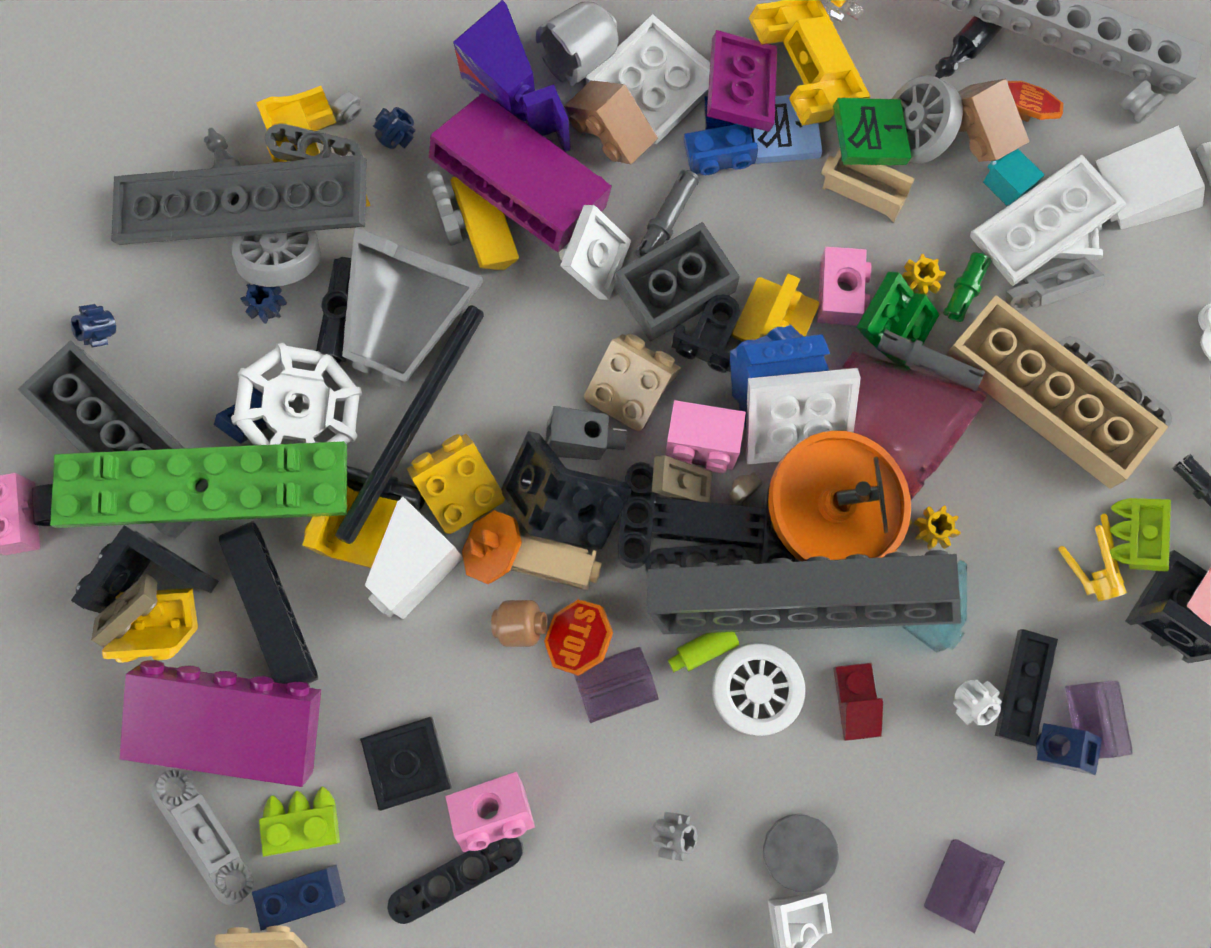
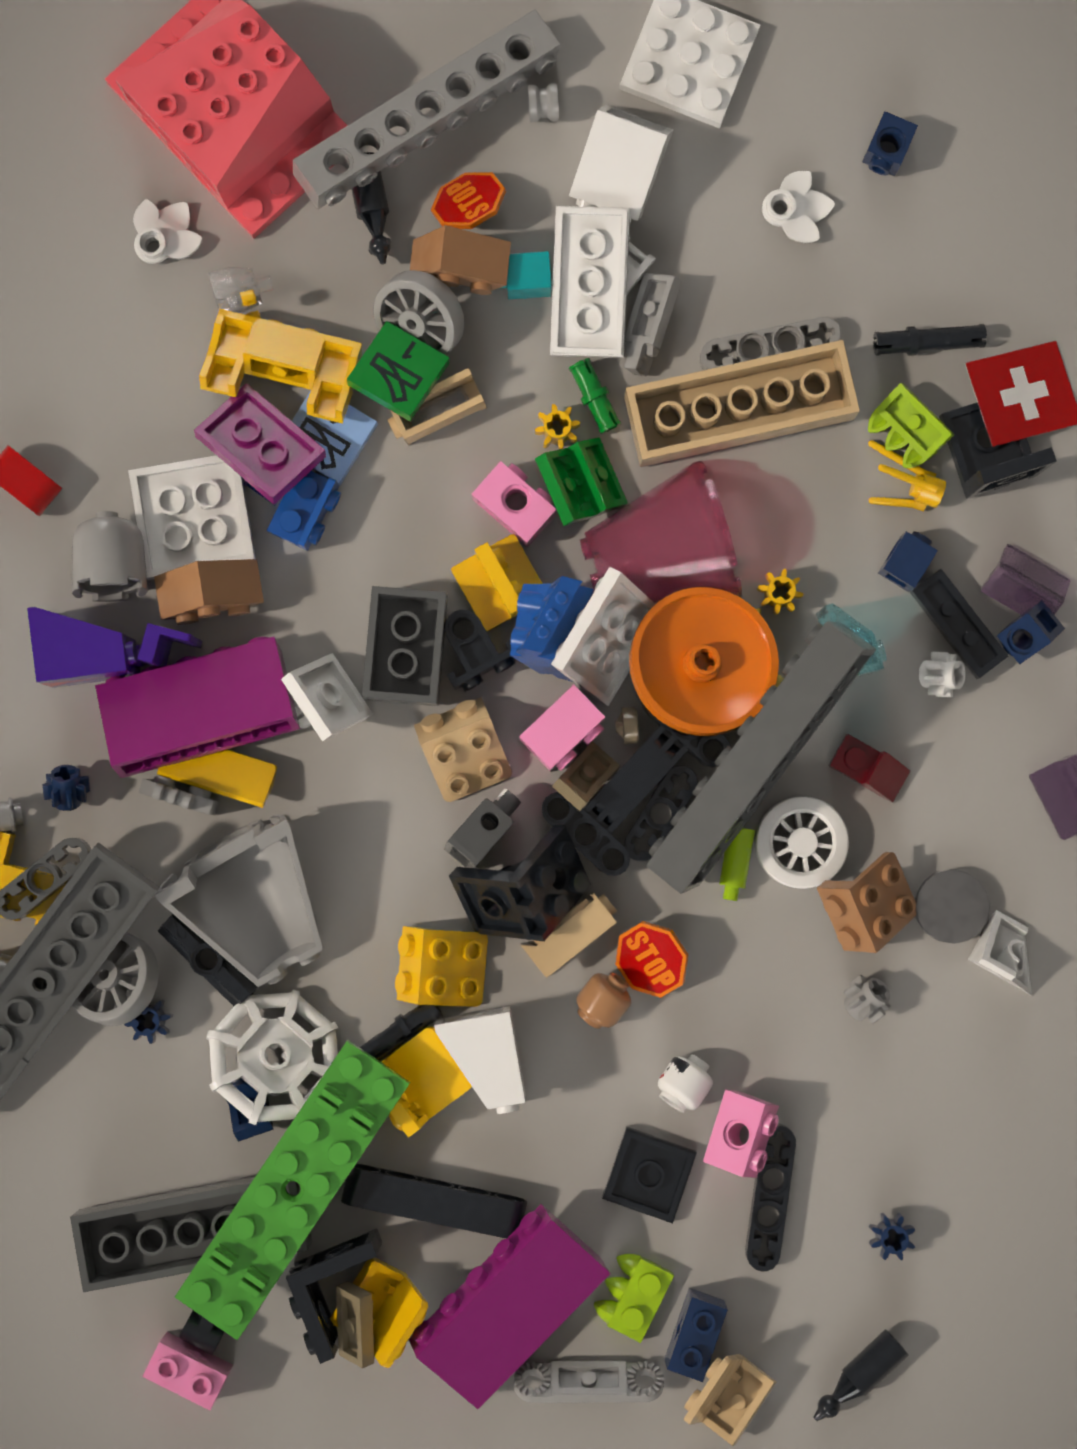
camera: 55 degrees left, 10 degrees up
(93, 325) = (60, 1187): dark blue gear -> none
(409, 426) = (364, 971): black axle -> none
(491, 547) = (523, 977): orange piece -> none
(499, 736) = (685, 1083): none -> white head
(616, 685) = (713, 955): clear purple panel -> none
(661, 227) = (334, 604): dark grey pin -> none
(751, 780) = (871, 906): none -> medium nougat bracket
(865, 493) = (718, 635): pearl dark grey shield -> none
(930, 360) = (639, 488): dark grey pin -> none
(1042, 608) = (908, 560): none -> dark blue brick

